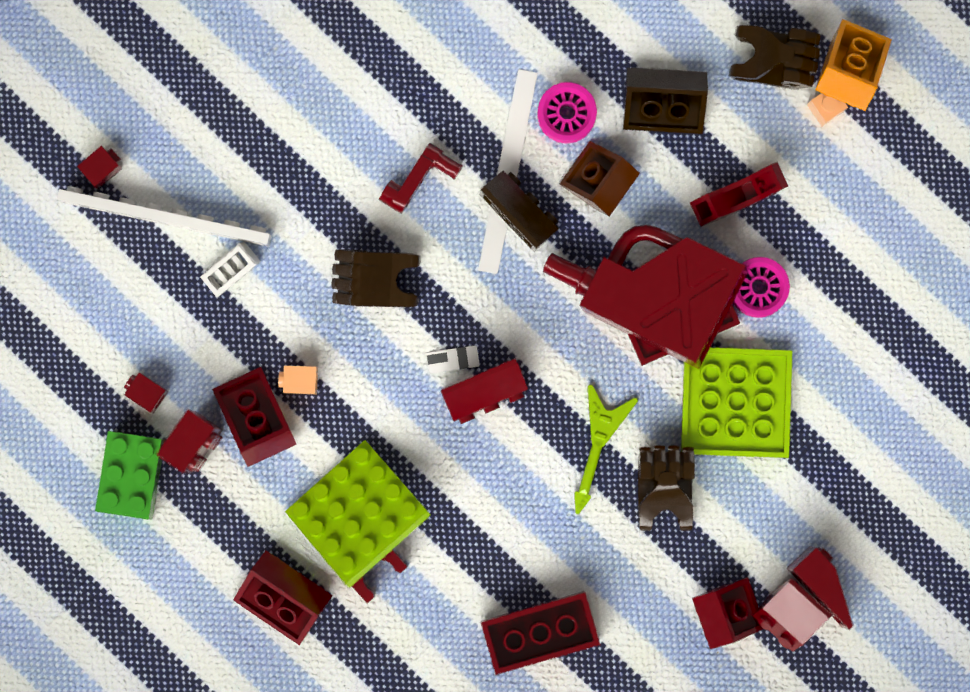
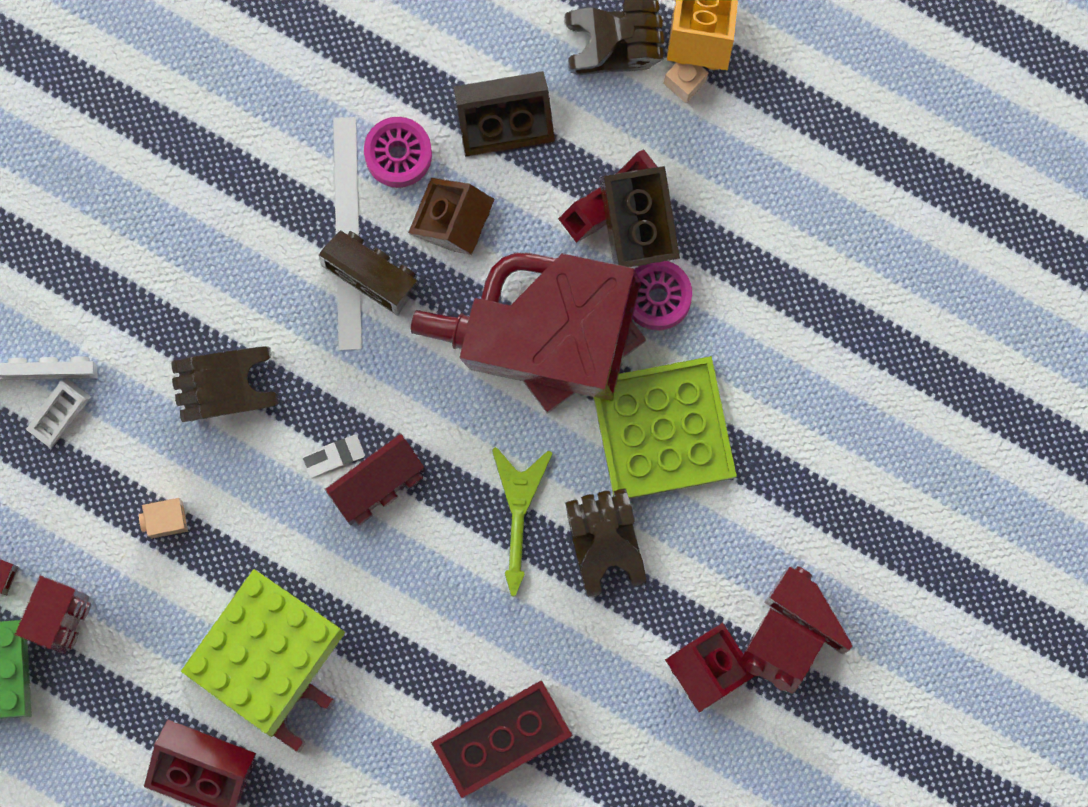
camera: 15 degrees left, 5 degrees down
(254, 417) = (122, 572): dark red slope -> none
(400, 196) = (233, 287): dark red beam -> none
(759, 220) = (639, 217): none -> dark brown slope

